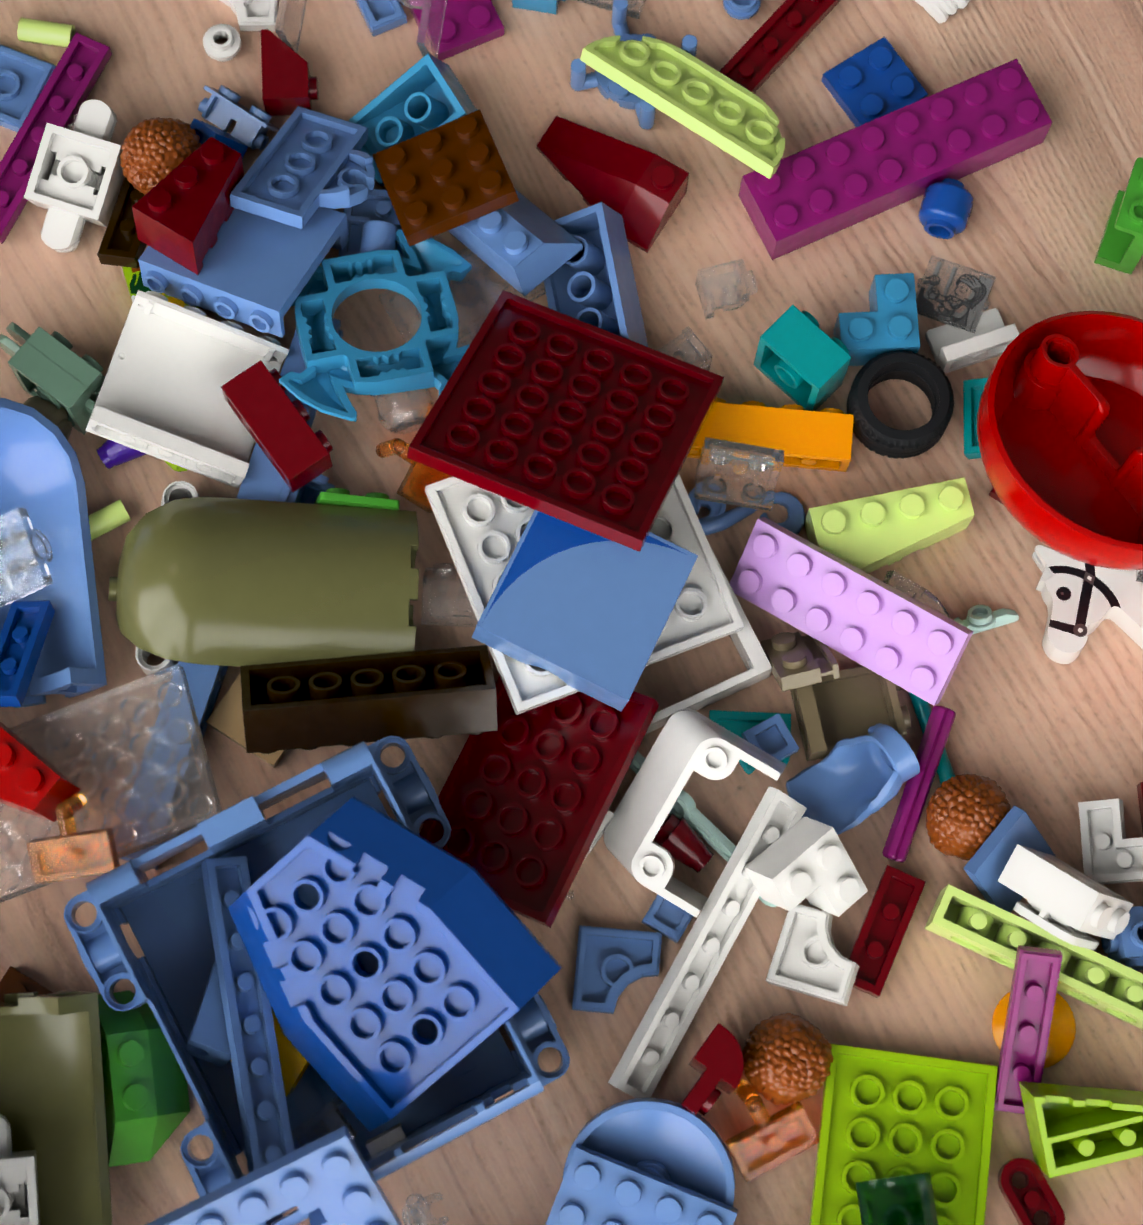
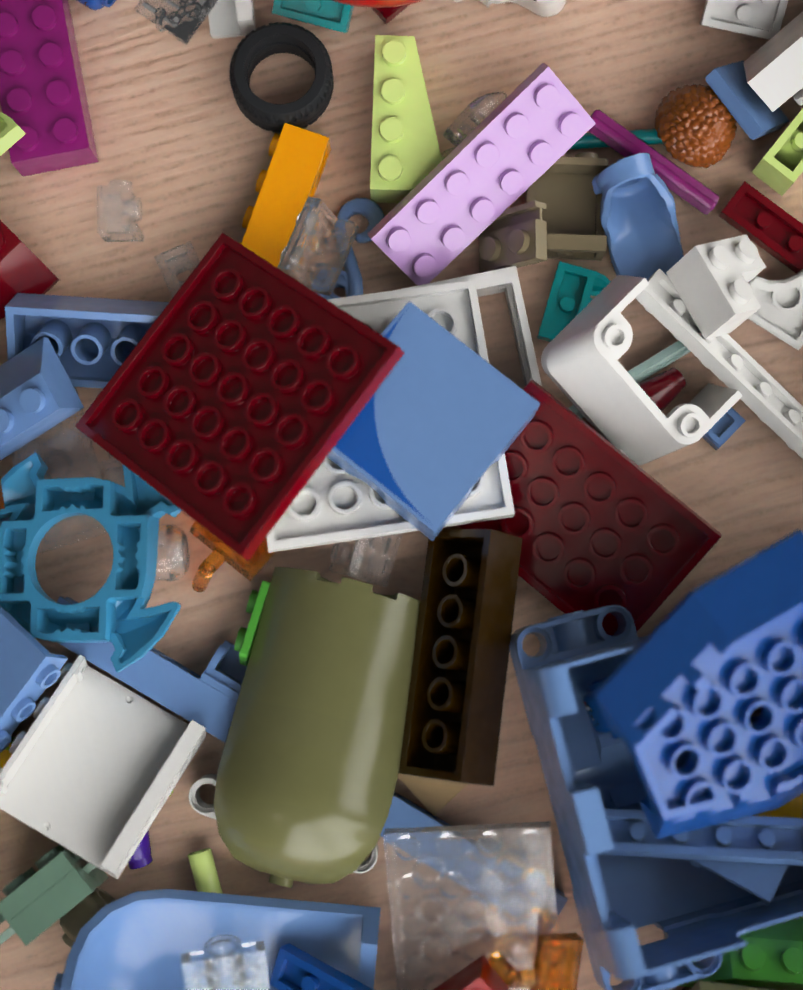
camera: 75 degrees left, 10 degrees up
(278, 425) = (159, 682): dark red brick -> none
(609, 963) = (749, 488): medium blue tile -> none
(772, 738) = (584, 283): medium blue plate -> none
(802, 359) = (217, 154): teal brick -> none
(888, 325) = (200, 65): dark azure brick -> none
(983, 618) = (508, 63): light aqua piece -> none

